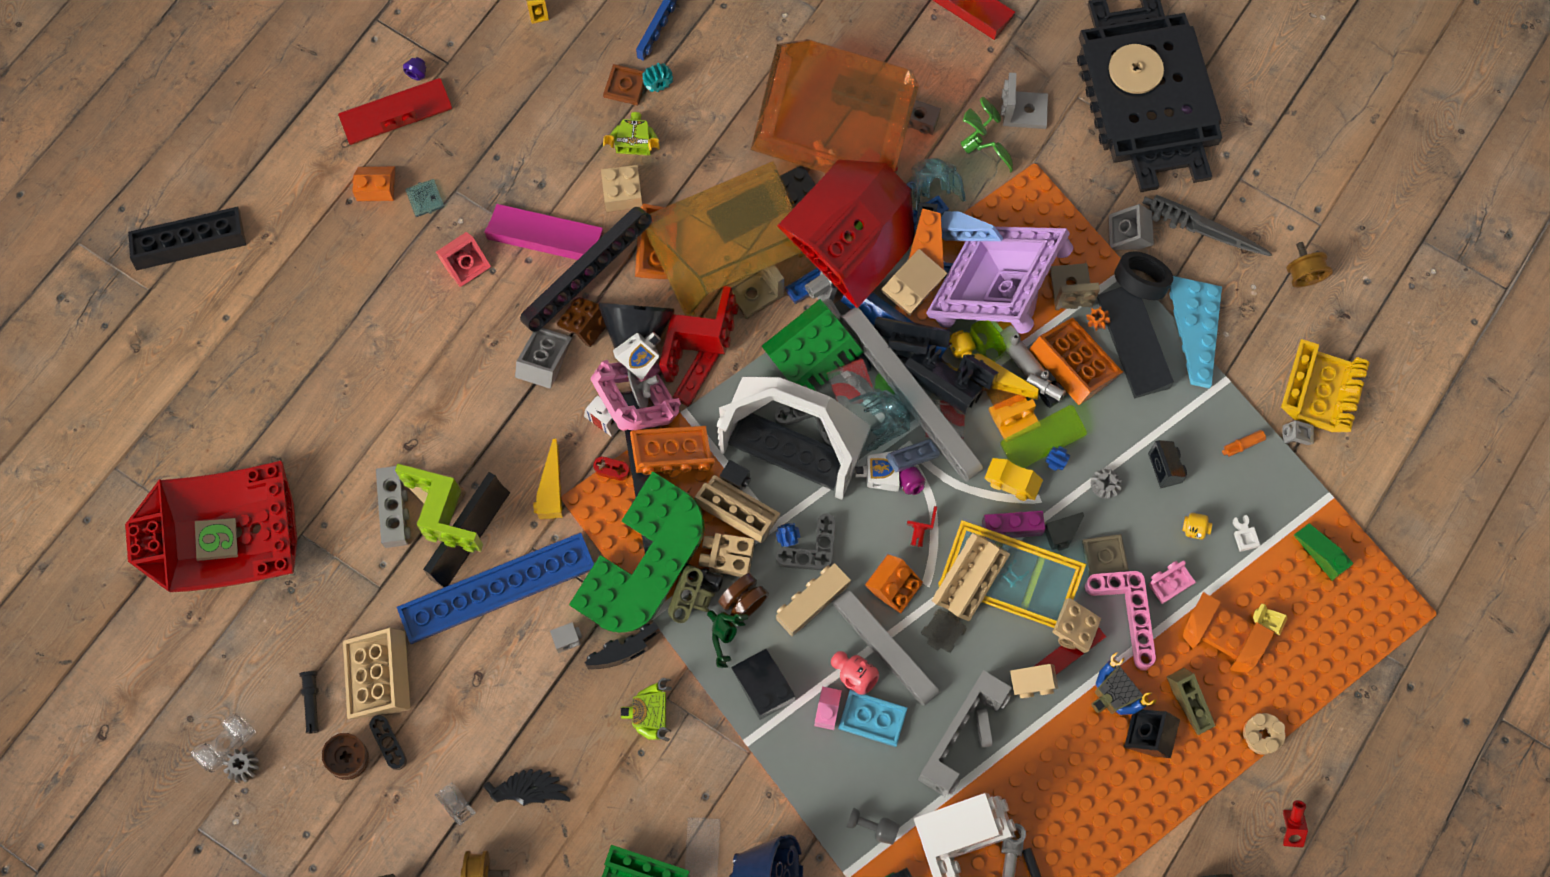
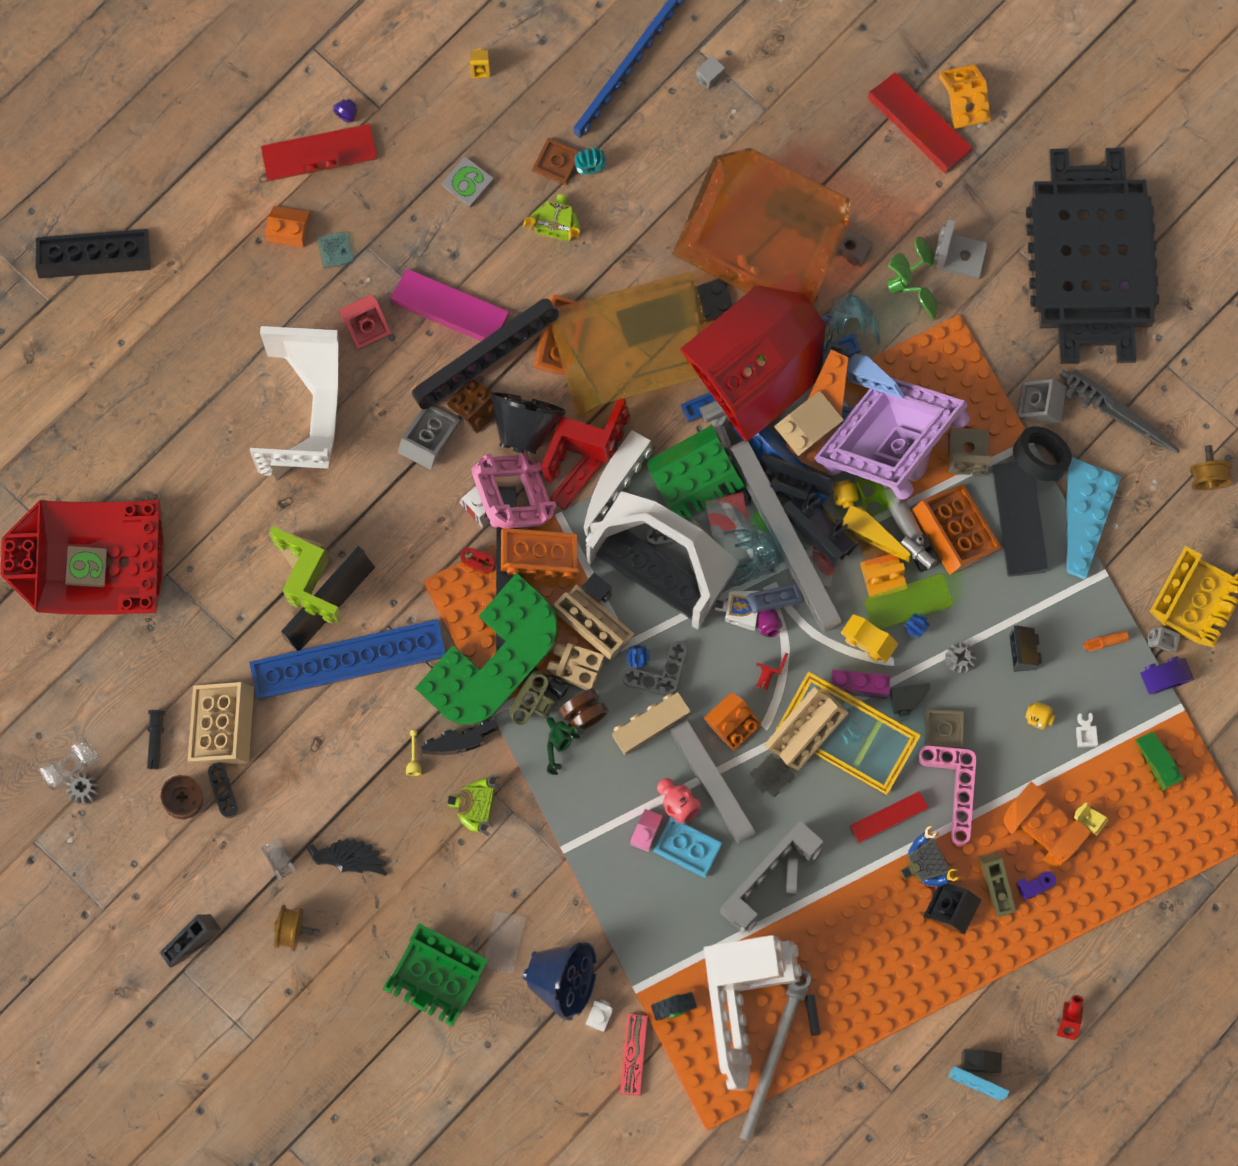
camera: 10 degrees right, 5 degrees up
(398, 536) = (253, 592): light grey brick -> none
(418, 299) = (316, 361): none -> white panel
(543, 116) = (467, 182): none -> light grey tile
(549, 491) = (413, 573): yellow slope -> none
(566, 637) = (407, 719): light grey brick -> none
(580, 685) = (413, 768): none -> light yellow hinge
(621, 188) = (534, 273): tan brick -> none
(638, 353) = (522, 452): white torso -> none
(641, 389) = (519, 487): light grey shield -> none
(736, 363) = (617, 476): none -> white slope
(763, 684) = (588, 796): black slope -> none
(767, 284) = (664, 404): dark tan bracket -> none
(885, 831) = (679, 954): dark grey piece -> none
(981, 372) = (856, 526): black plate -> none
(1034, 680) = (847, 837): tan brick -> none
(1076, 626) = (899, 793): tan plate -> none
(1094, 316) = (985, 485): orange gear -> none
(1133, 56) = (1079, 220): tan piece -> none
(1171, 582) = (1003, 766): bright pink bracket -> none
(1236, 692) = (1036, 887): none -> dark purple leg
(1274, 728) = (1062, 938): tan plate -> none
(1311, 466) = (1167, 675): none -> dark purple brick

